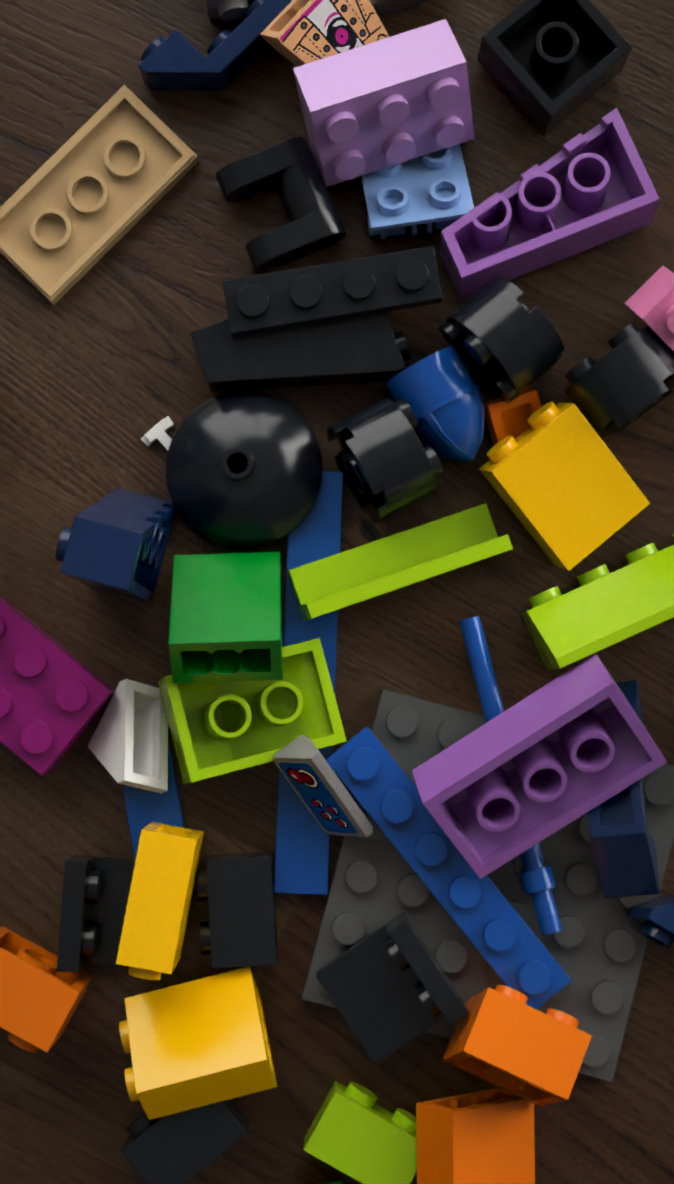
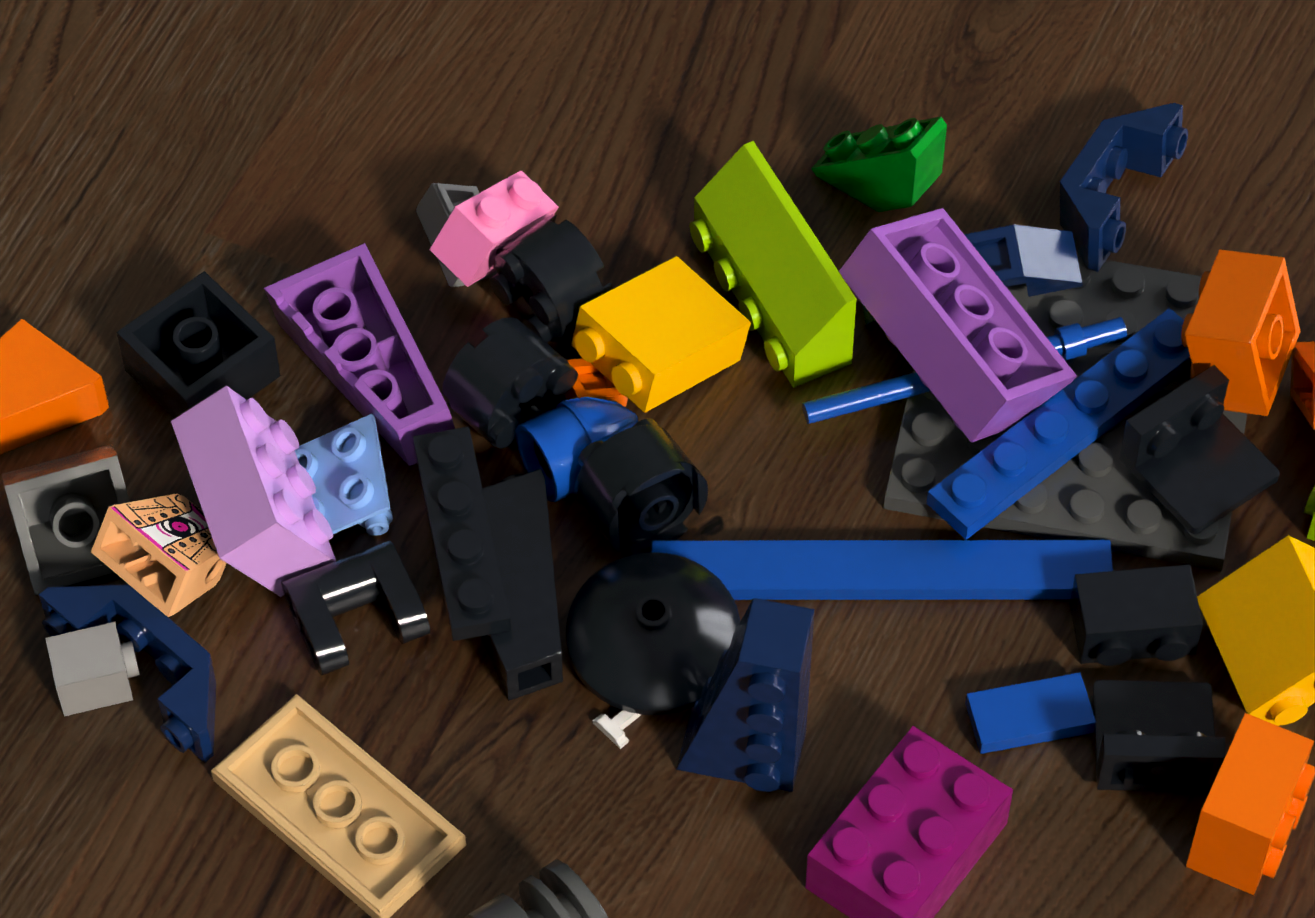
camera: 90 degrees left, 30 degrees down
(134, 737) = (964, 720): white slope -> none
(159, 900) = (1134, 660): yellow brick -> none
(226, 617) = (852, 601): green brick -> none
(246, 722) = (923, 610): lime slope -> none
(321, 789) = (999, 522): slope -> none
(396, 561) = (753, 480): lime fence -> none

